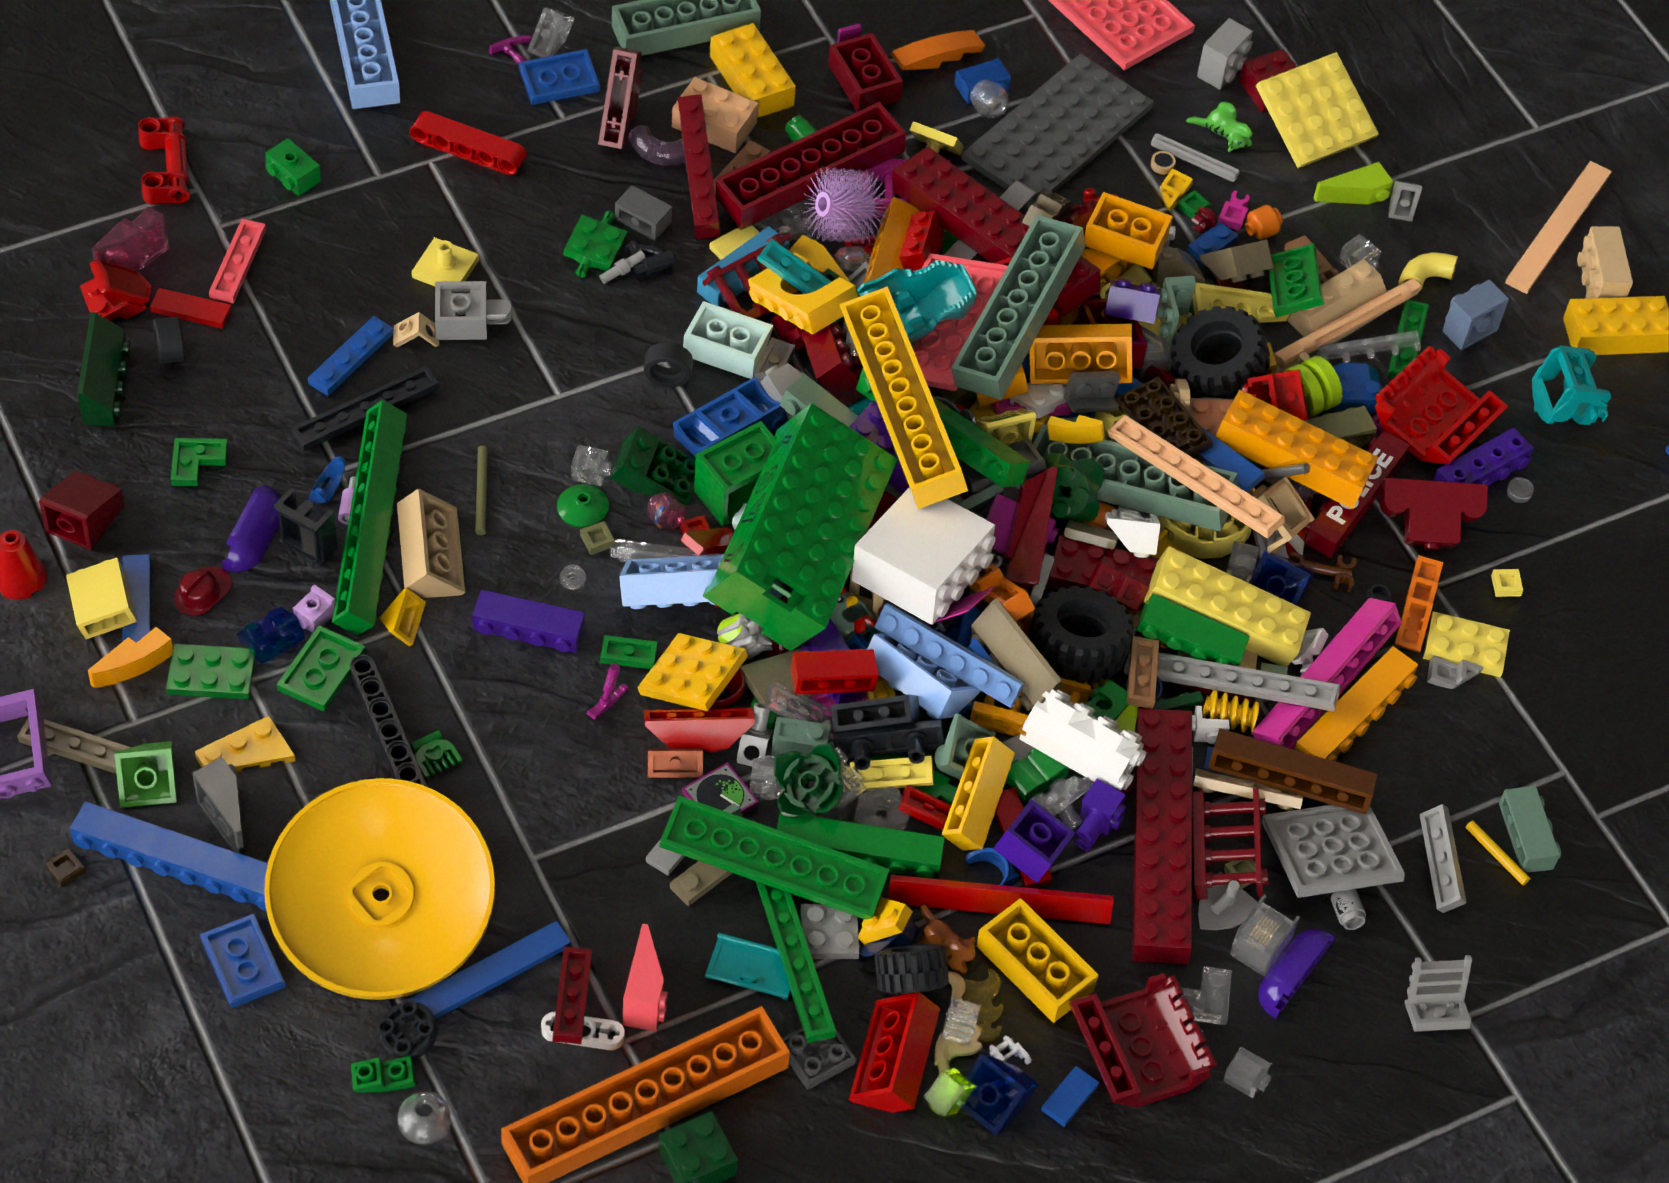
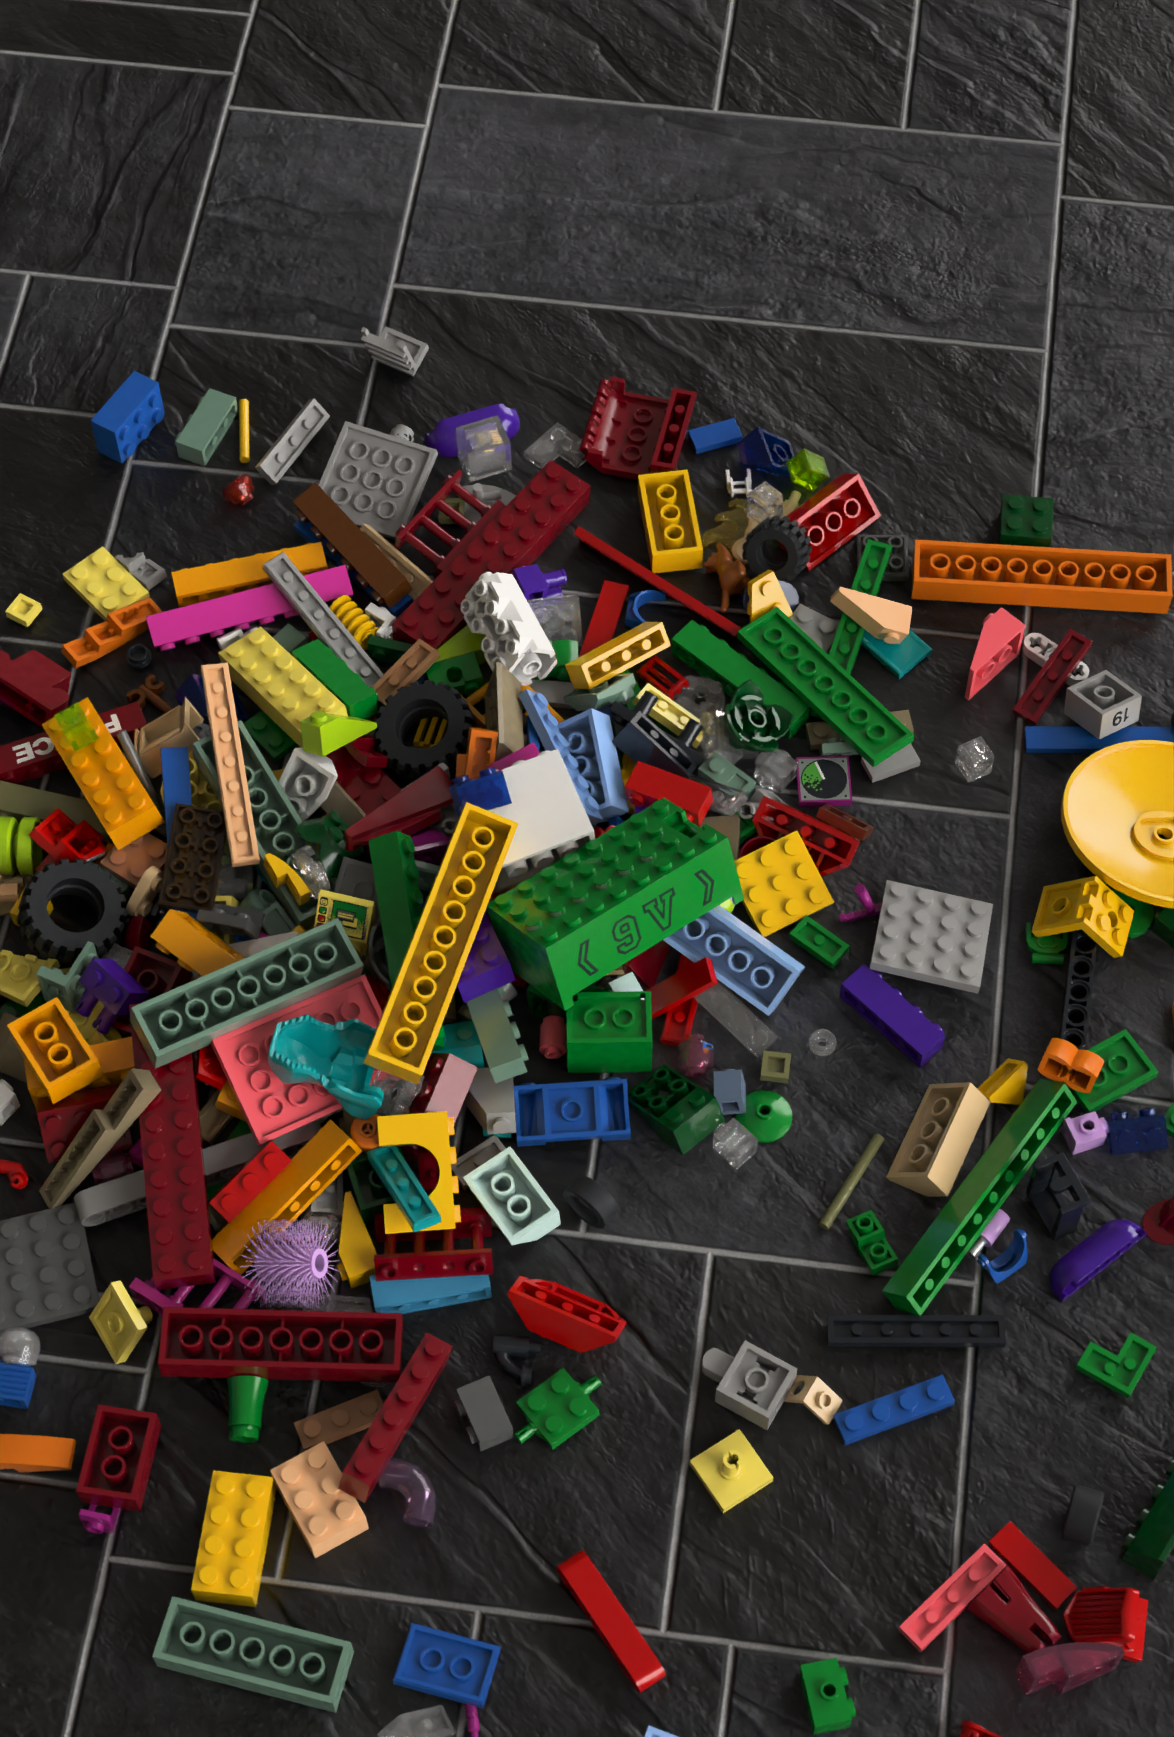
camera: 140 degrees left, 5 degrees up
(187, 270) = (1014, 1613): none -> dark red piece
(351, 634) = (1068, 1064): none -> orange brick
(415, 760) = (1088, 907): none -> yellow bracket
(437, 455) = (871, 1242): none -> green slope
(507, 983) = (1102, 704): none -> light grey brick
(535, 697) = (931, 936): none -> light grey plate
(596, 878) = (974, 759): none -> clear brick
(619, 496) = (730, 1091): none -> sand blue brick
(621, 97) = (414, 1551): brick -> none
(622, 267) = (551, 1359): light grey bar -> none
(631, 293) = (565, 1314): none -> red wedge
(731, 241) = (418, 1324): light yellow tile -> none
(774, 949) = (876, 615): none -> light nougat slope
(970, 520) = (484, 791): none -> clear blue bracket
(1034, 840) = (605, 592): dark purple brick -> none
(1057, 434) = (311, 871): none -> clear plate
(1142, 560) = (328, 732): none -> lime slope
(1248, 1072) = (575, 381): clear brick -> none
(1339, 441) = (76, 726): none -> clear neon green brick
(1441, 782) = (239, 490): none -> clear red cone
(1598, 786) = (128, 417): none -> blue brick

